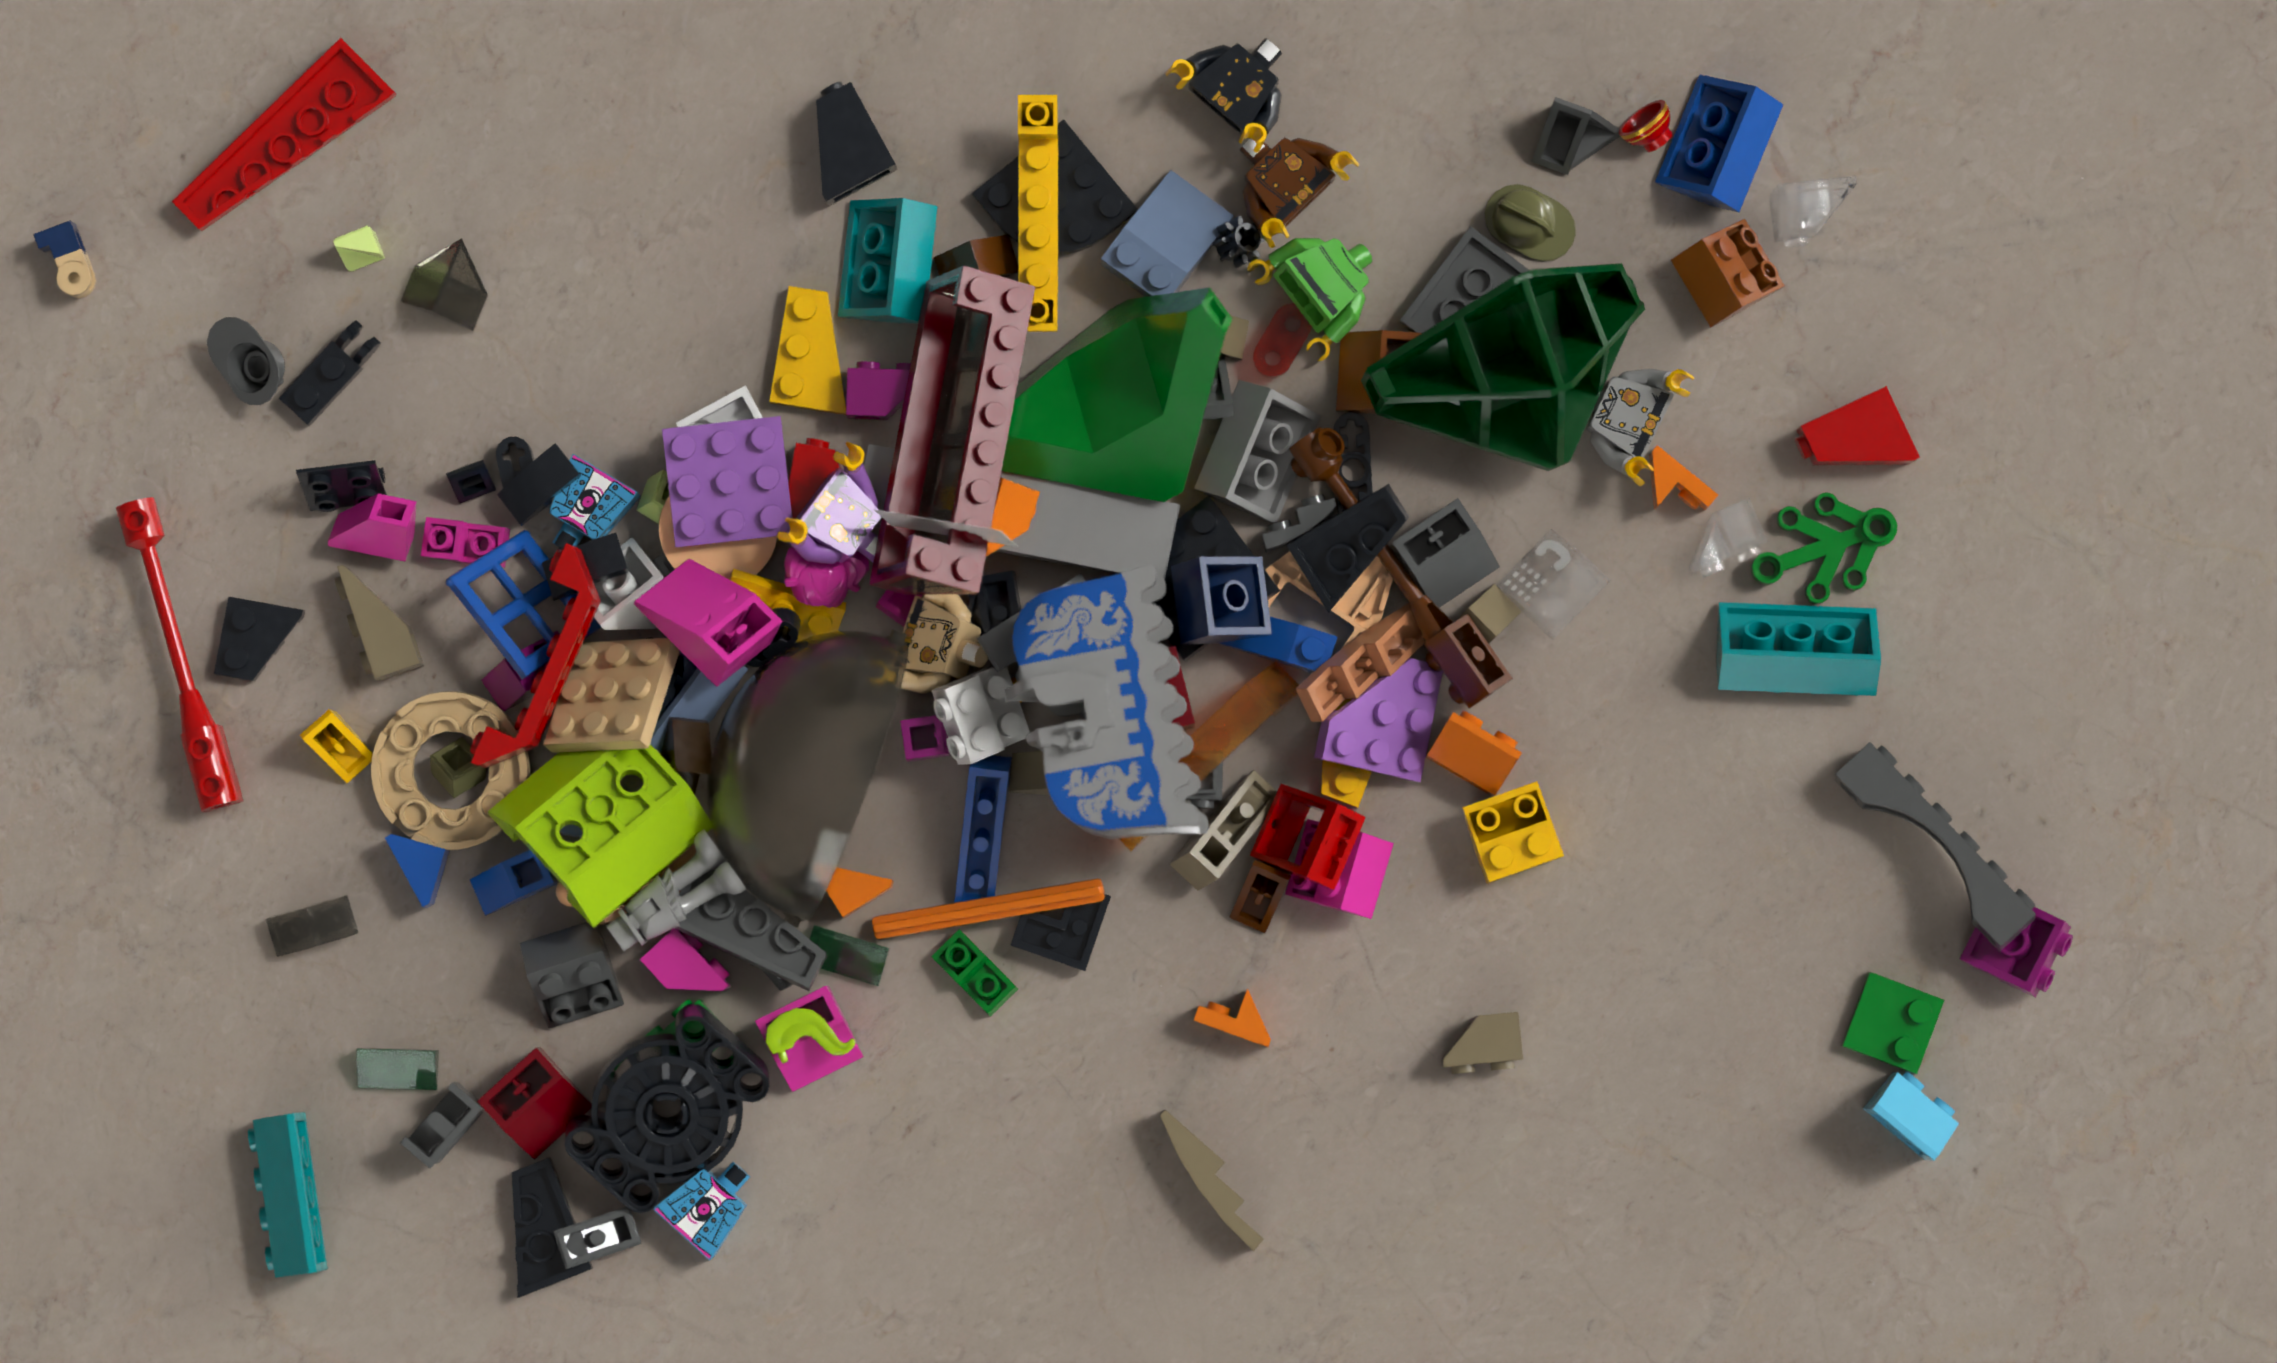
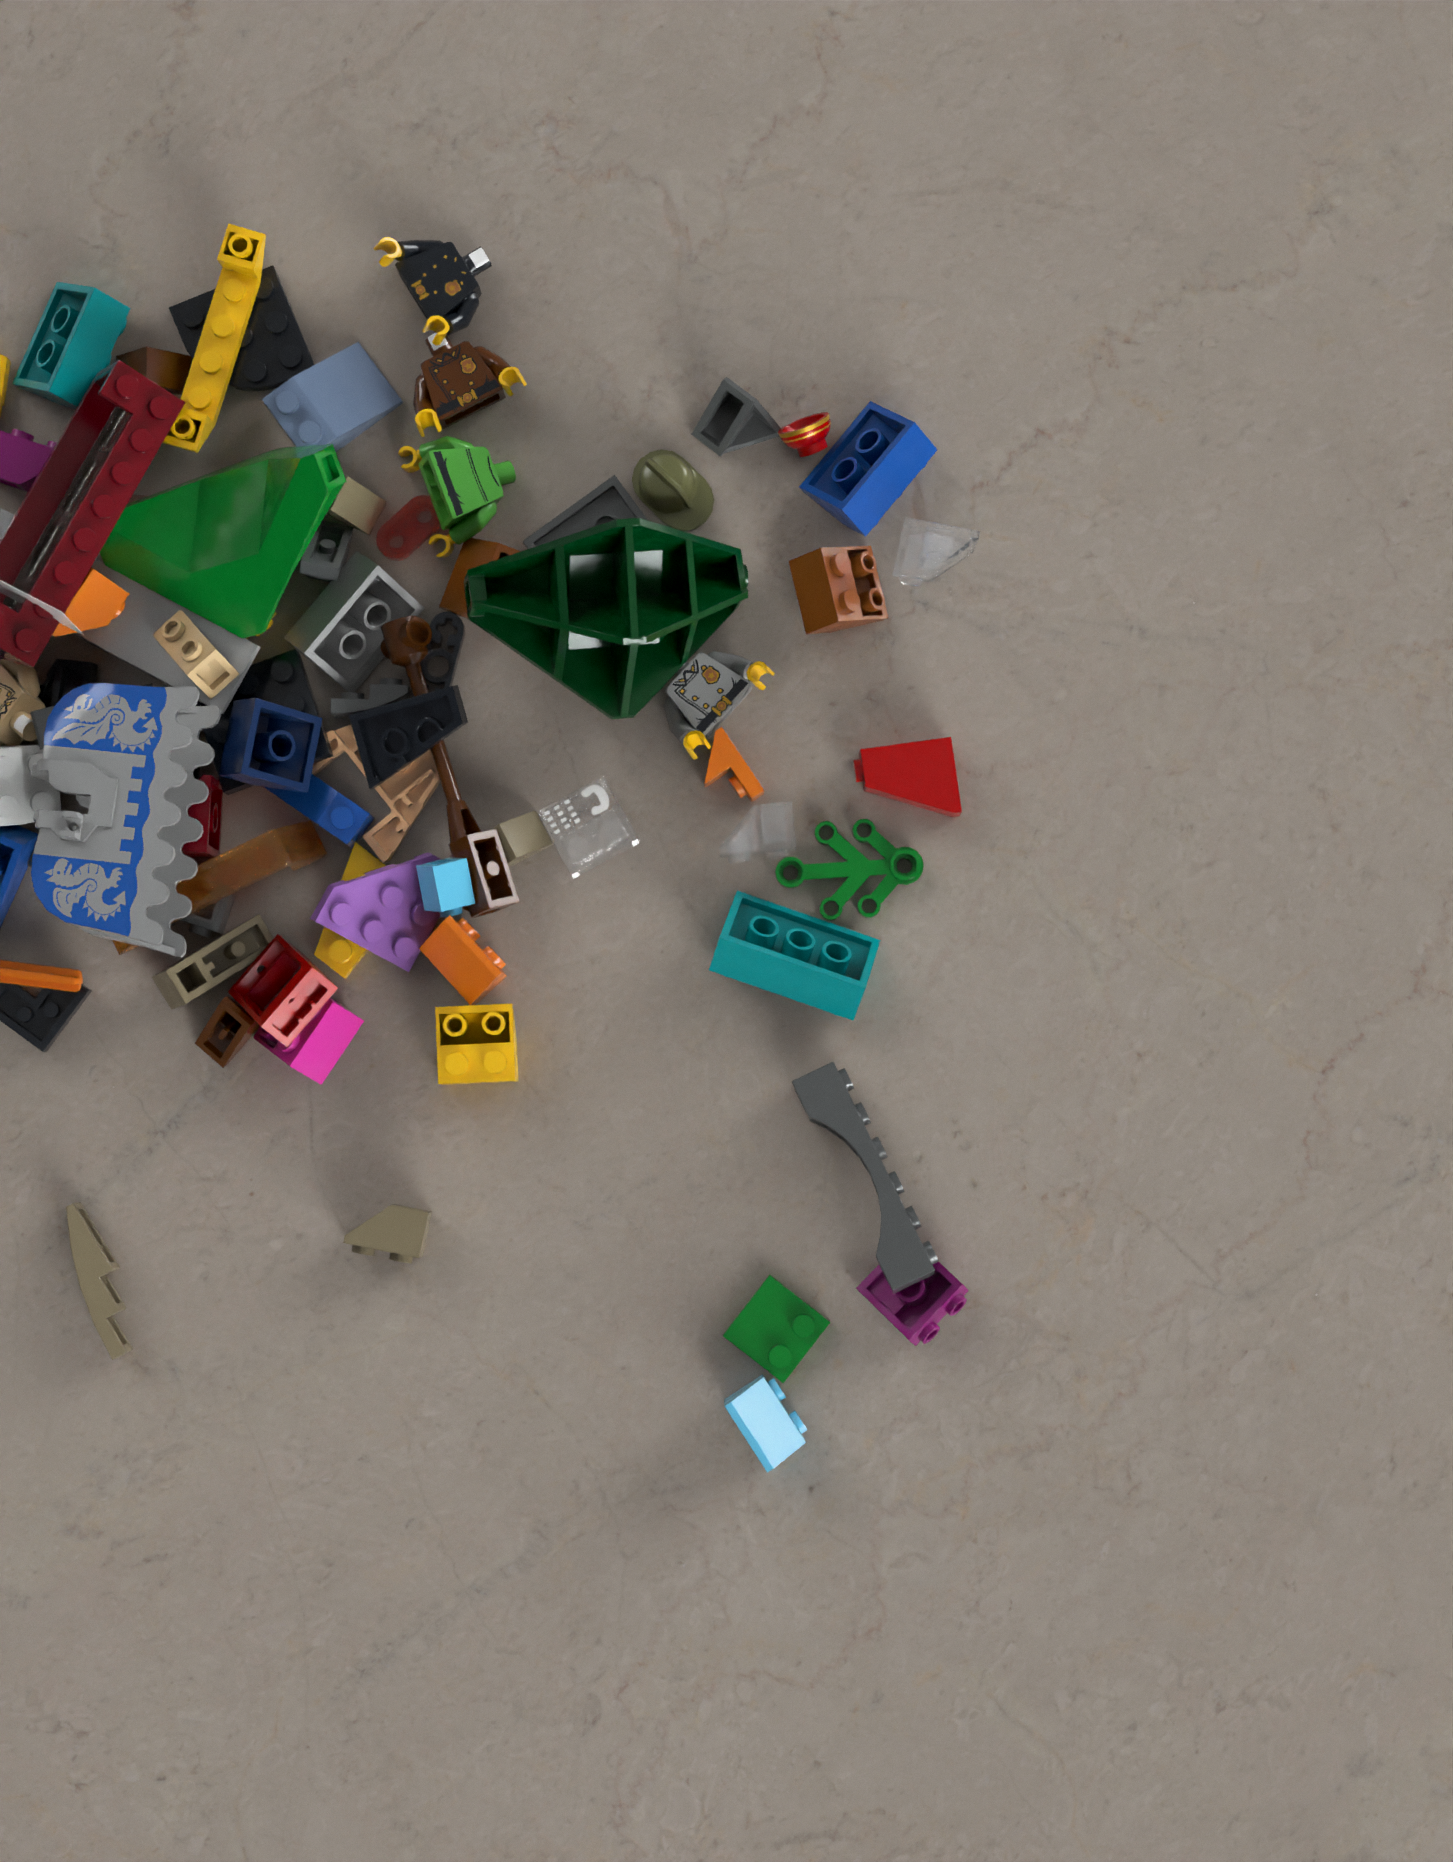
camera: 15 degrees right, 0 degrees up
(848, 144) = (68, 229): black slope -> none
(1121, 530) = (195, 654): none -> tan bracket
(1238, 242) = (386, 428): black gear -> none
(1246, 1025) = (176, 1147): orange slope -> none
(1358, 664) = (382, 845): nougat slope -> none
(1437, 684) = (445, 885): none -> medium azure brick
(1445, 553) = (495, 768): dark grey slope -> none

